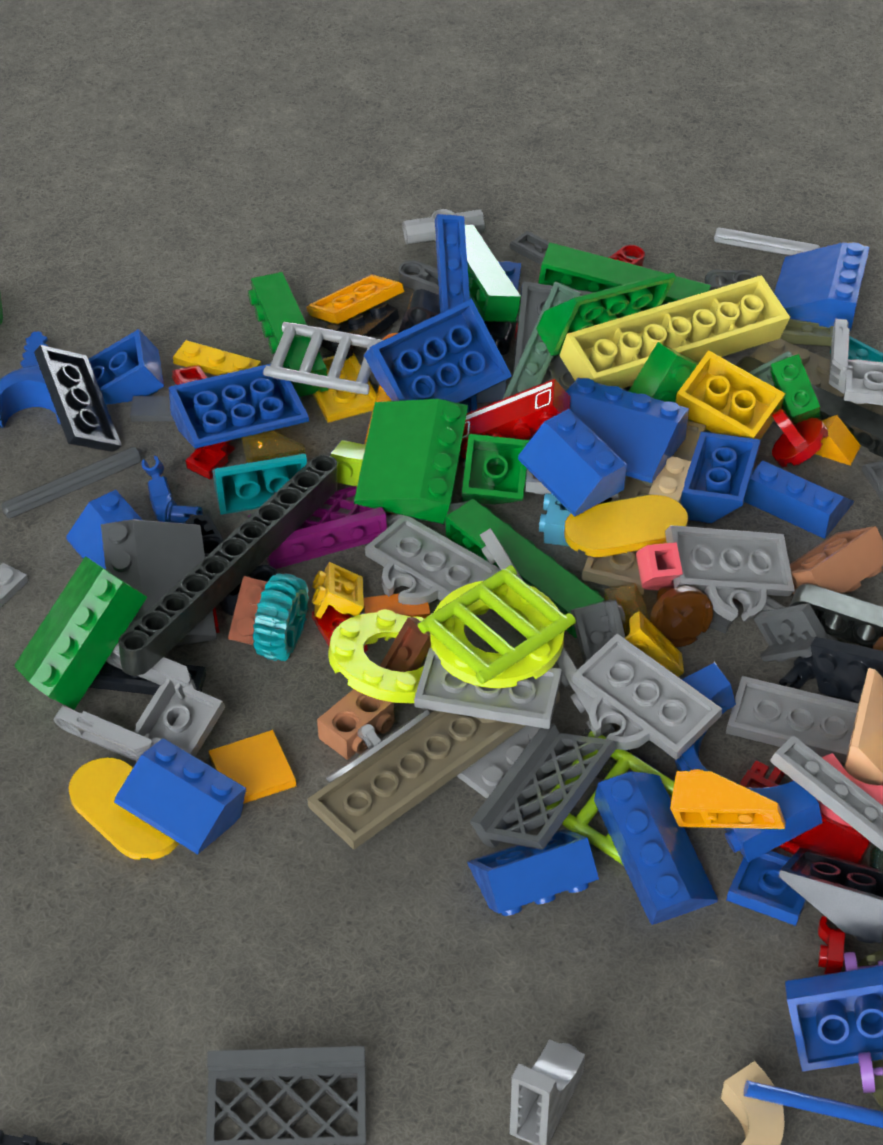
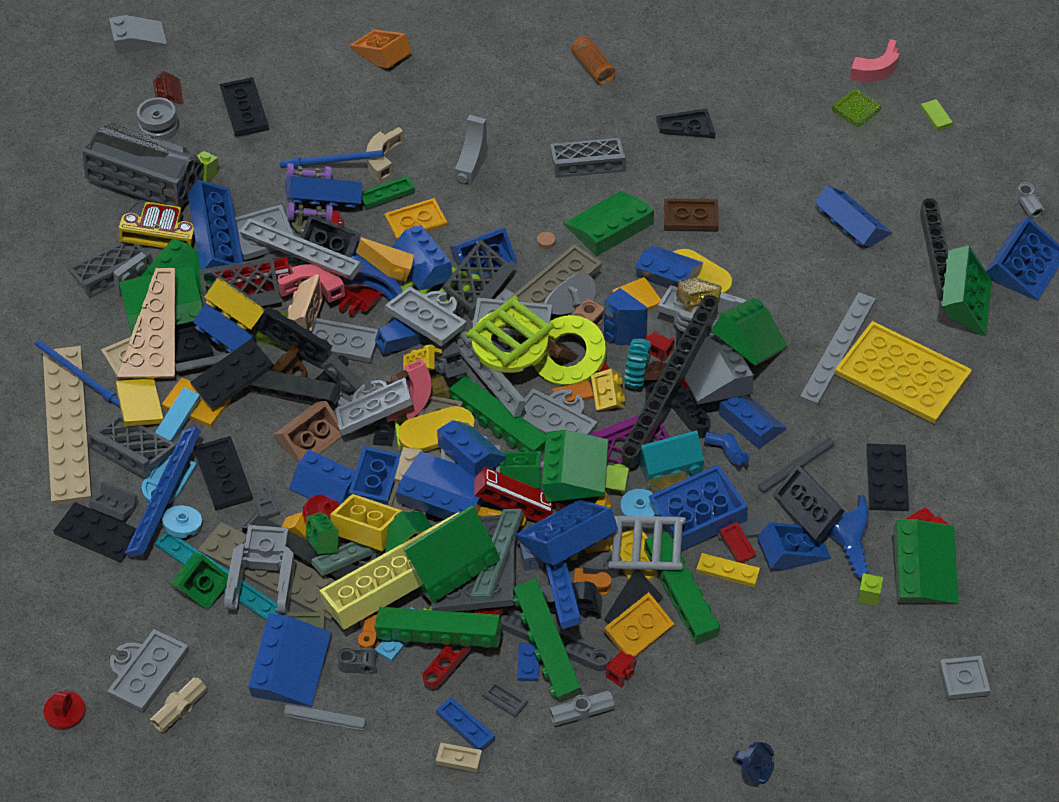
camera: 175 degrees right, 5 degrees up
(33, 315) = (870, 589): none -> lime brick
(104, 930) = (691, 214): none -> reddish brown plate
(146, 711) = (693, 290): none -> clear yellow slope
(234, 664) = (660, 346): none -> red brick
(246, 162) = (756, 762): none -> dark blue tile
(271, 925) = (611, 222): none -> green slope
(288, 671) = (624, 318): none -> blue slope
(321, 438) = (629, 503): none -> medium azure plate
(387, 259) = (620, 668): none -> red brick
(404, 900) = (546, 240): none -> nougat tile
(590, 224) = (465, 724): none -> blue plate
(598, 196) = (459, 757): none -> tan plate
(667, 971) = (423, 213): none -> light orange tile
(731, 1034) = (387, 192): none -> green plate

